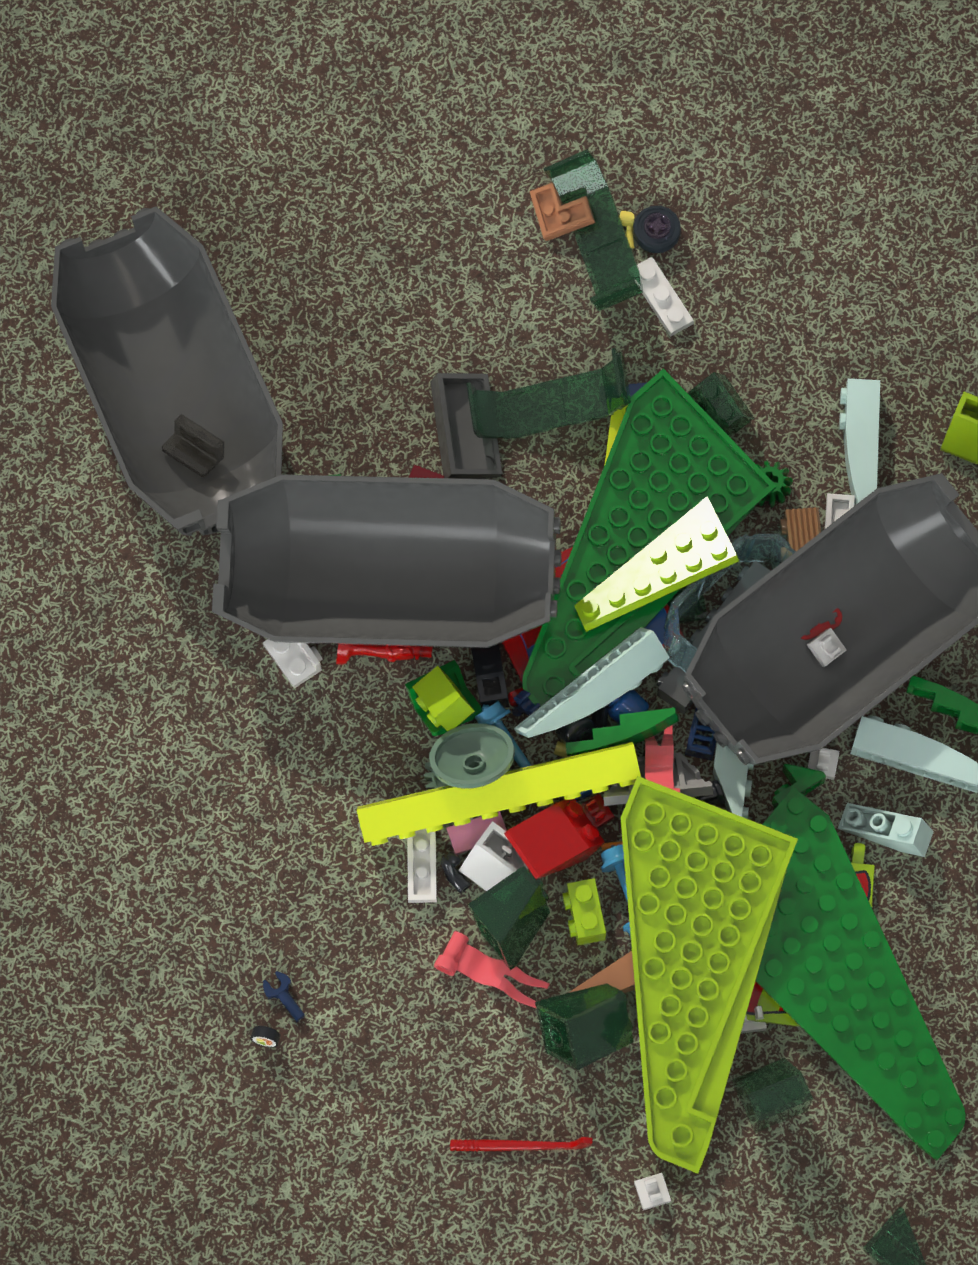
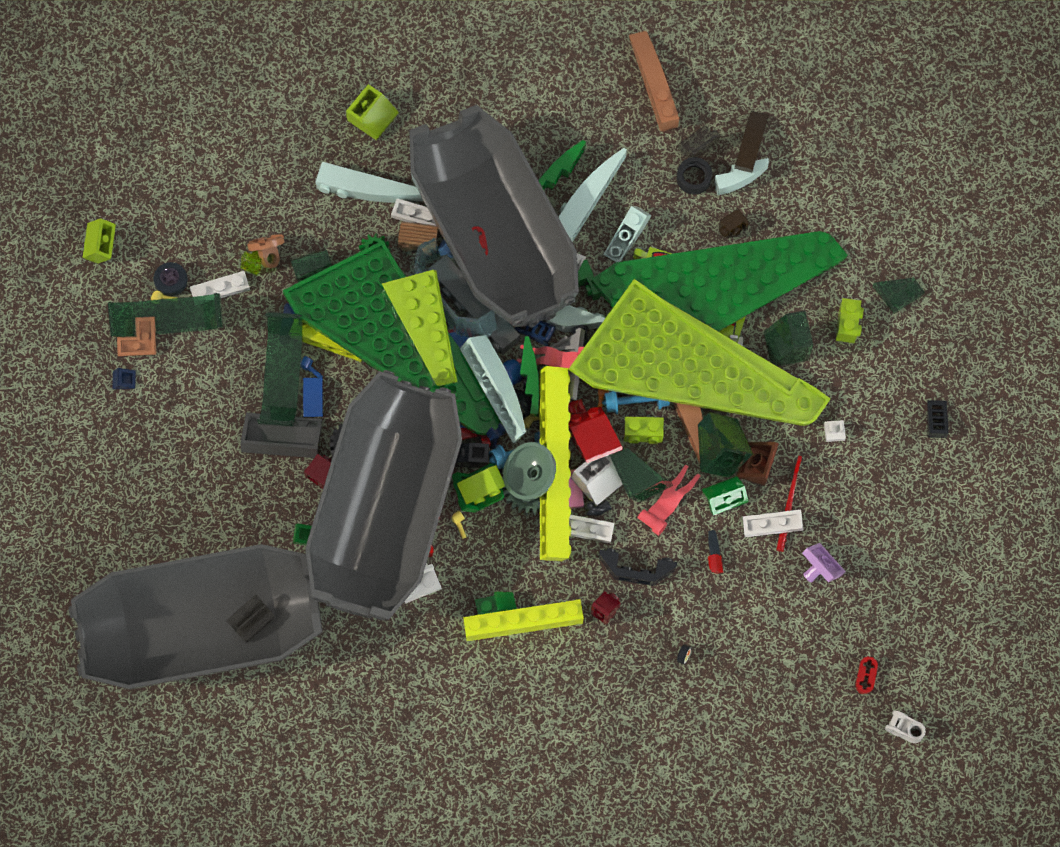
camera: 80 degrees left, 0 degrees up
(267, 804) = (523, 620): none -> neon yellow brick
(284, 765) = (498, 602): none -> green slope
(284, 996) = (657, 637): dark blue bar -> none
(309, 911) = (605, 607): none -> dark red slope
(377, 908) = (663, 569): none -> black slope
(397, 685) = (457, 518): none -> light yellow hand
(428, 1050) = (714, 559): none -> piece
(438, 1206) = (822, 564): none -> lavender tile
(485, 1124) = (773, 523): none -> white plate
(499, 209) = (124, 379): none -> dark blue slope
(515, 1049) = (725, 495): none -> green panel
(530, 453) = (313, 397): none -> blue slope
(575, 1088) = (758, 466): none -> copper slope
(576, 434) = (306, 365): none -> blue hand
(686, 123) = (99, 241): none -> lime brick
(708, 327) = (251, 262): none -> clear neon green tile
(734, 337) = (265, 247): none -> nougat tile
(826, 647) = (497, 240): white tile -> none
(829, 1178) = (848, 320): none -> lime brick
(940, 977) = (733, 224): none -> dark brown brick

